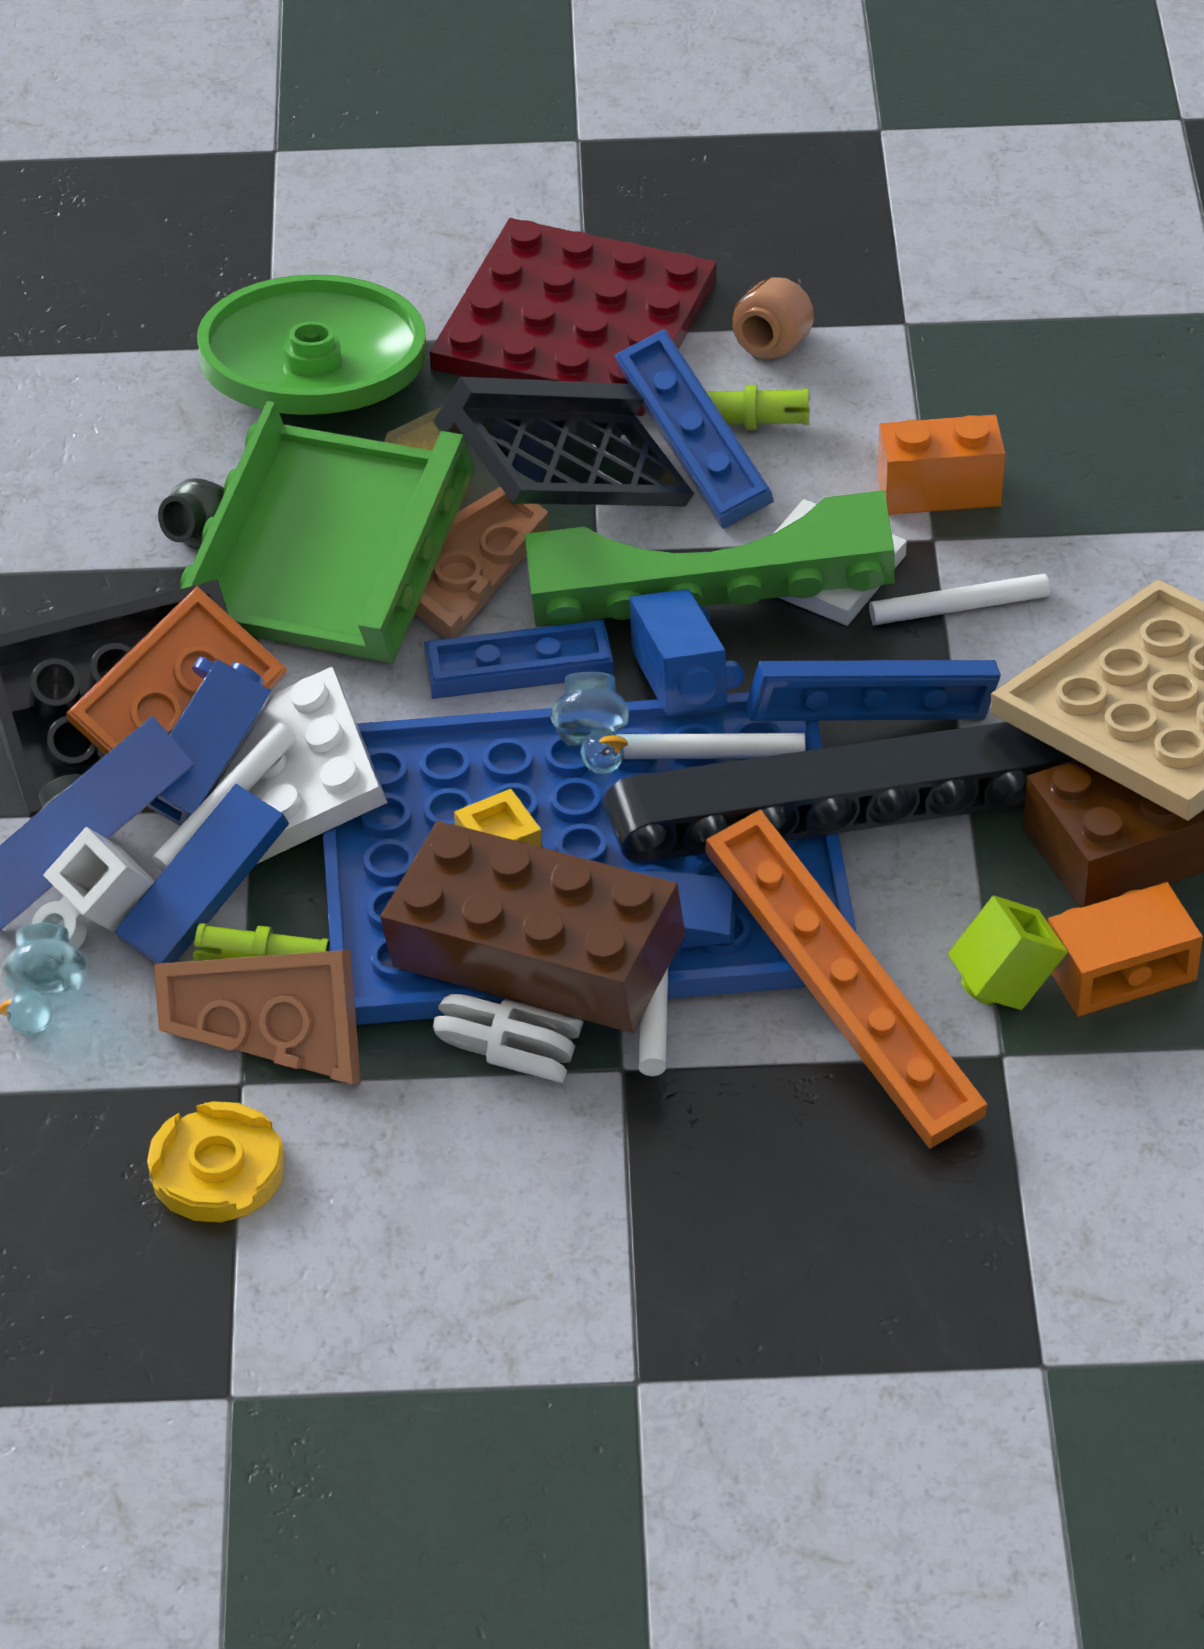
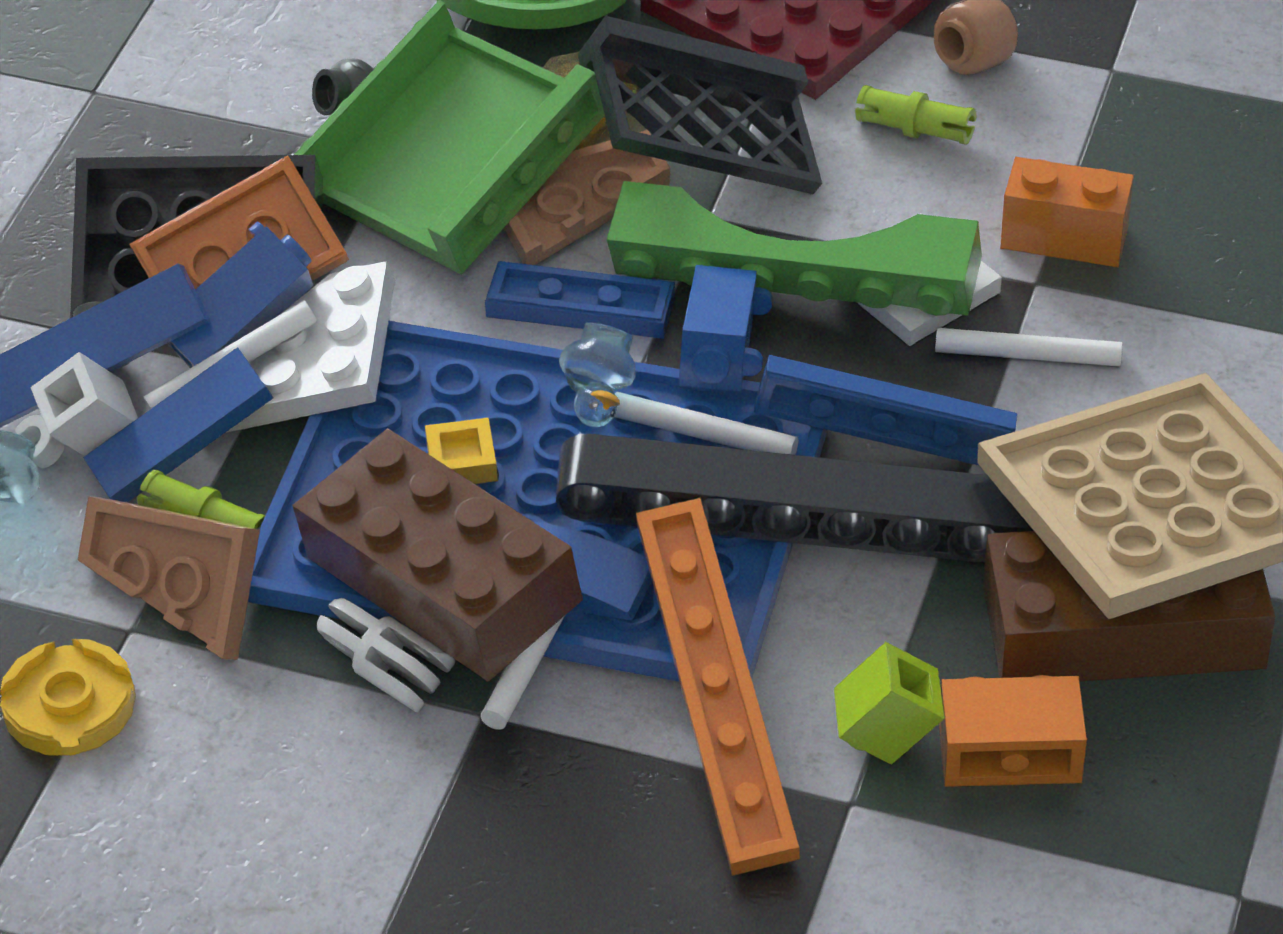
camera: 20 degrees right, 0 degrees up
(694, 429) = (846, 122): blue tile -> none

